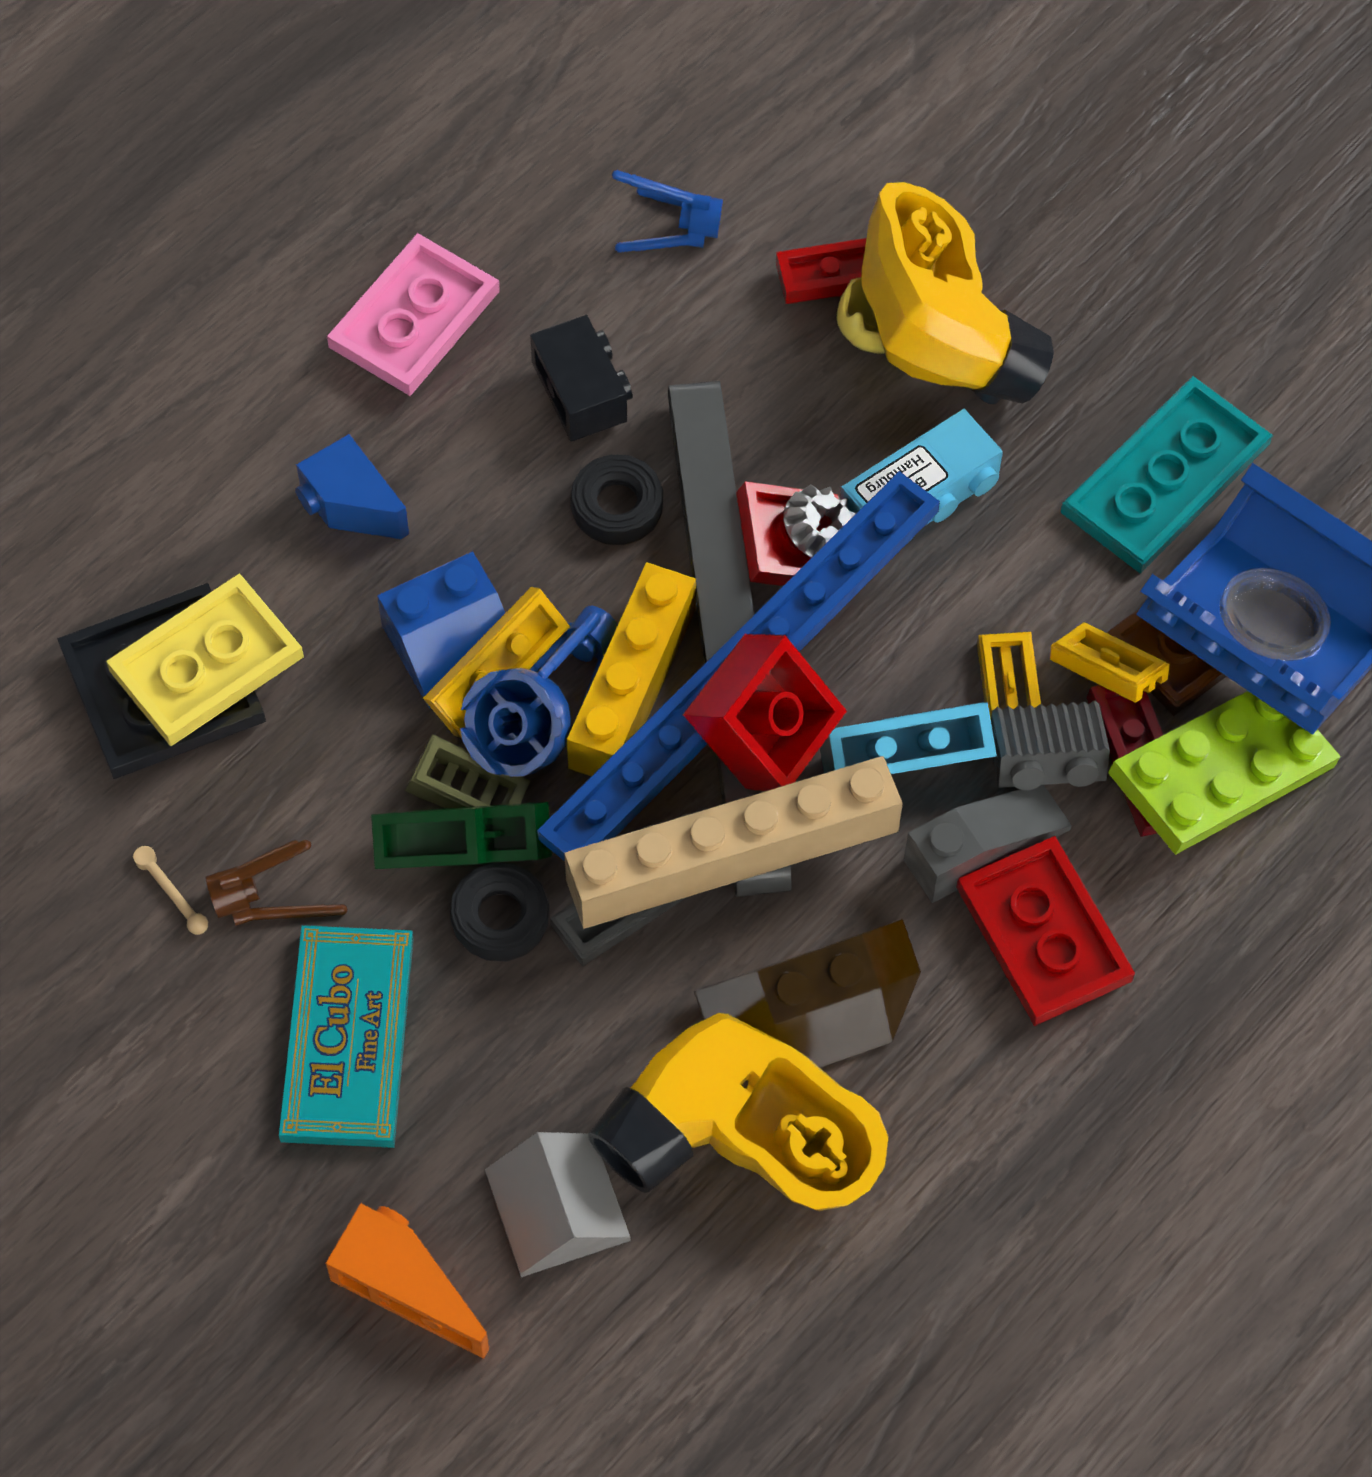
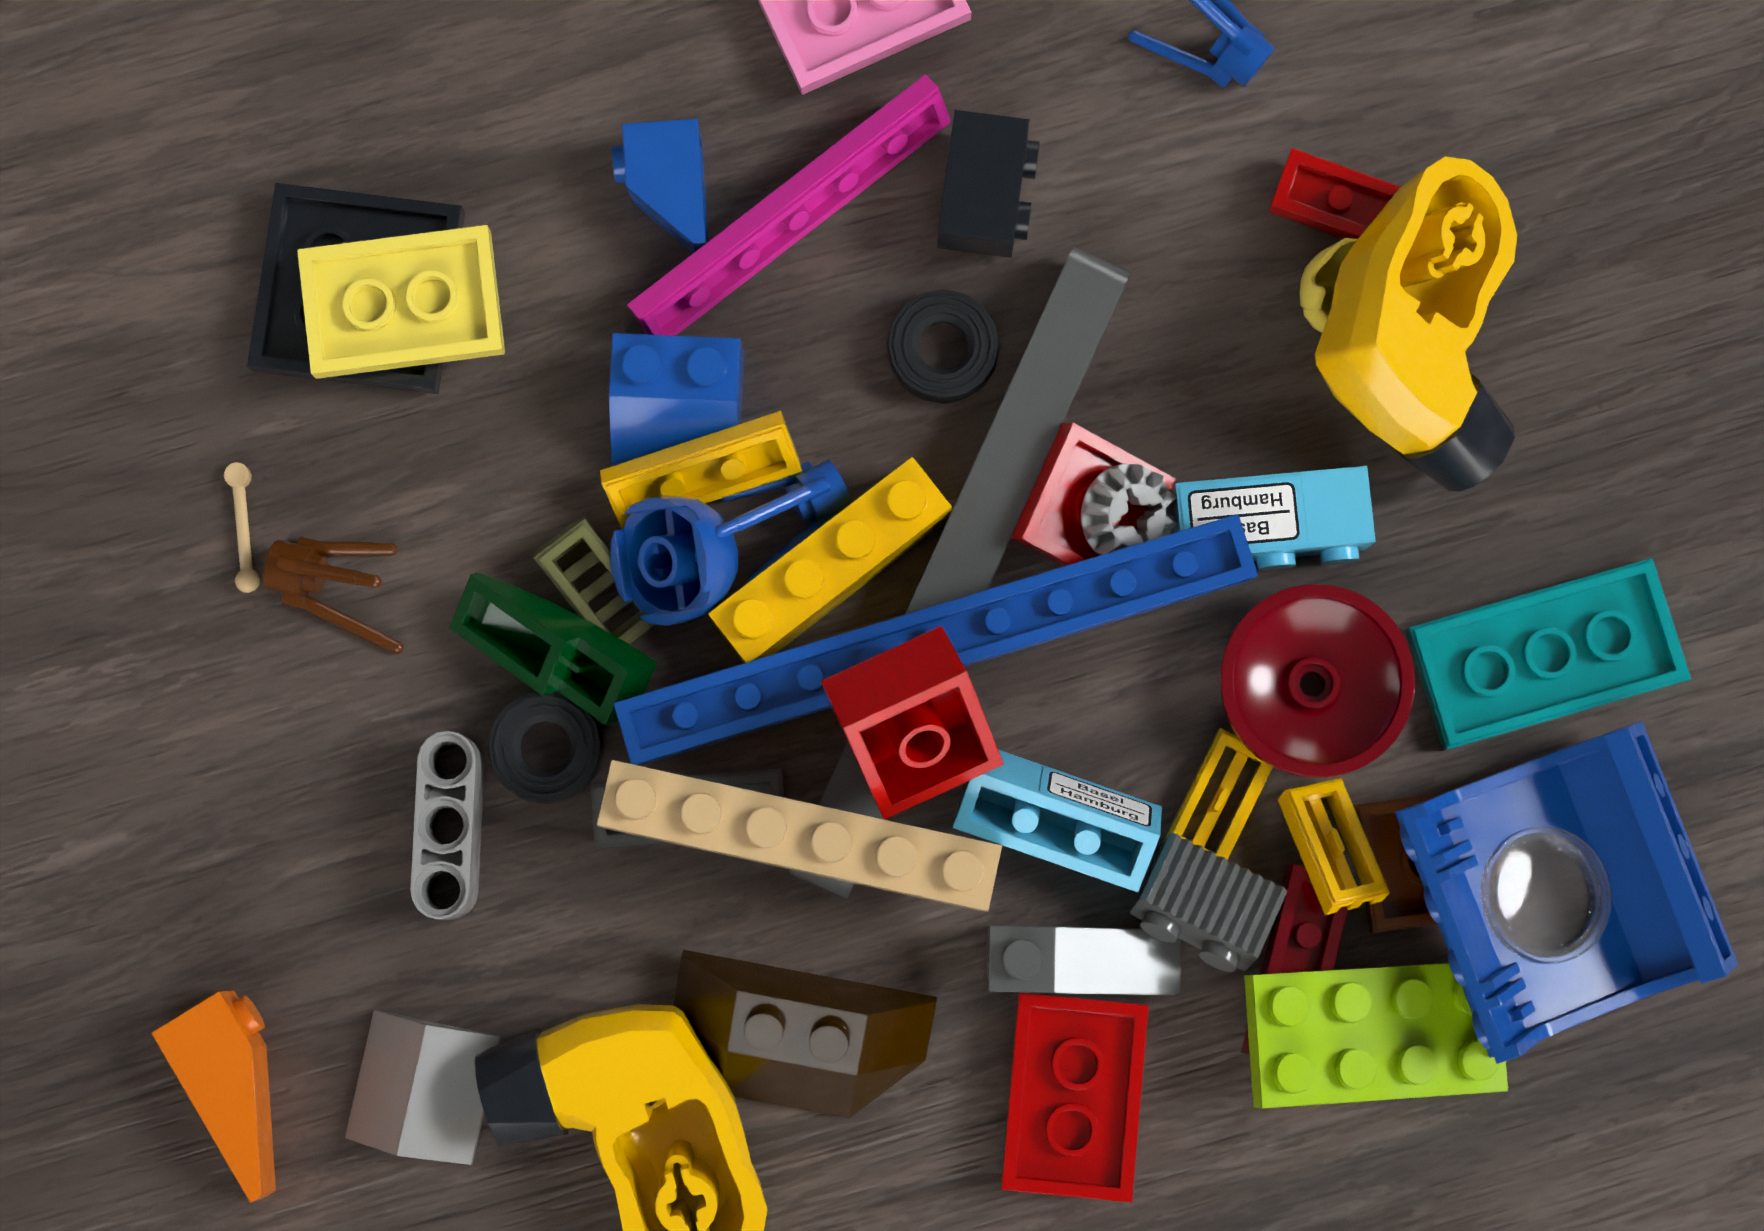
camera: 35 degrees right, 20 degrees up
(347, 1037) = (321, 790): teal tile -> none
(454, 461) = (792, 210): none -> dark pink tile
(457, 977) = (432, 797): none -> light grey beam
(1029, 536) = (1362, 674): none -> dark red dish

